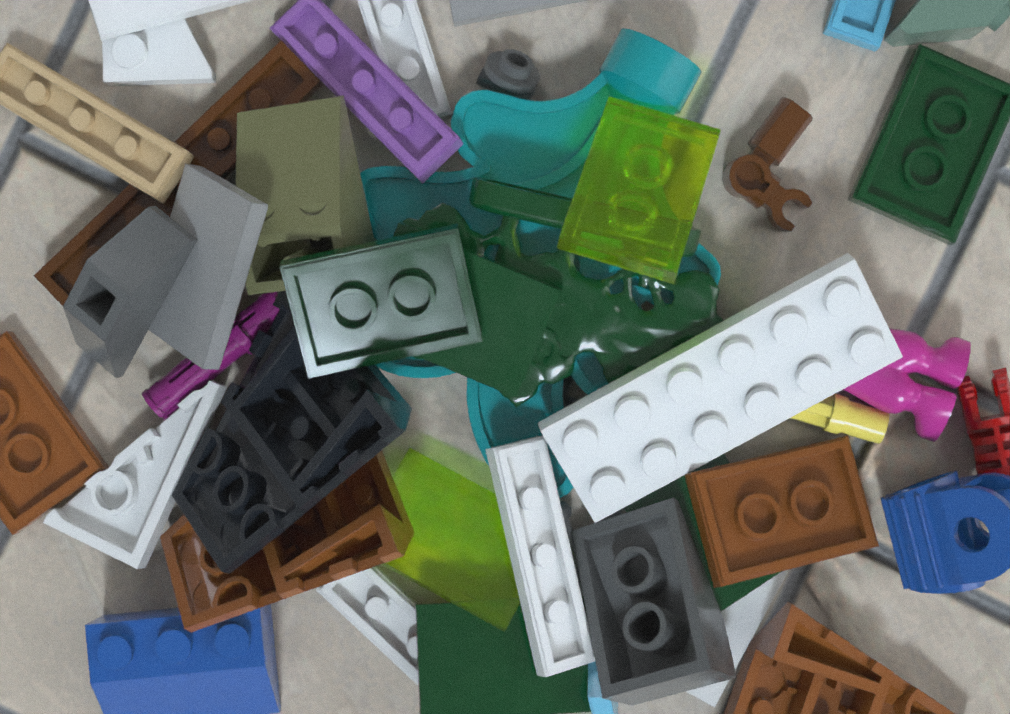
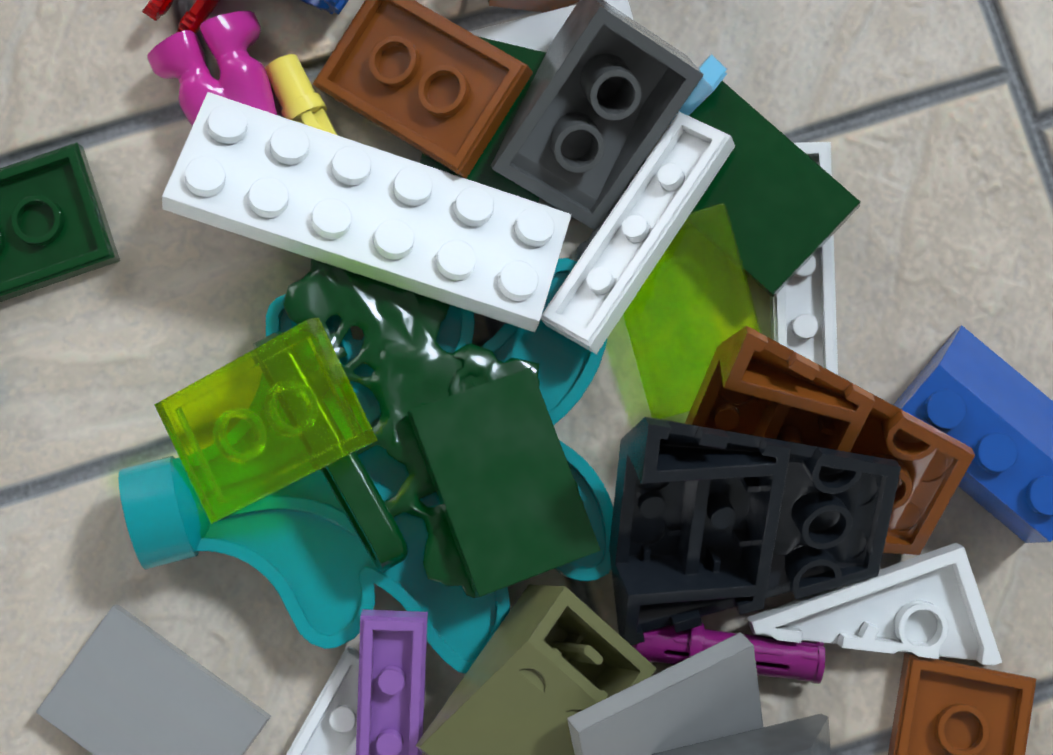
camera: 130 degrees left, 5 degrees down
(381, 300) = (556, 547): tile -> none
(510, 74) = (269, 629): dark grey plate -> none
(750, 174) = (170, 354): reddish brown bar -> none

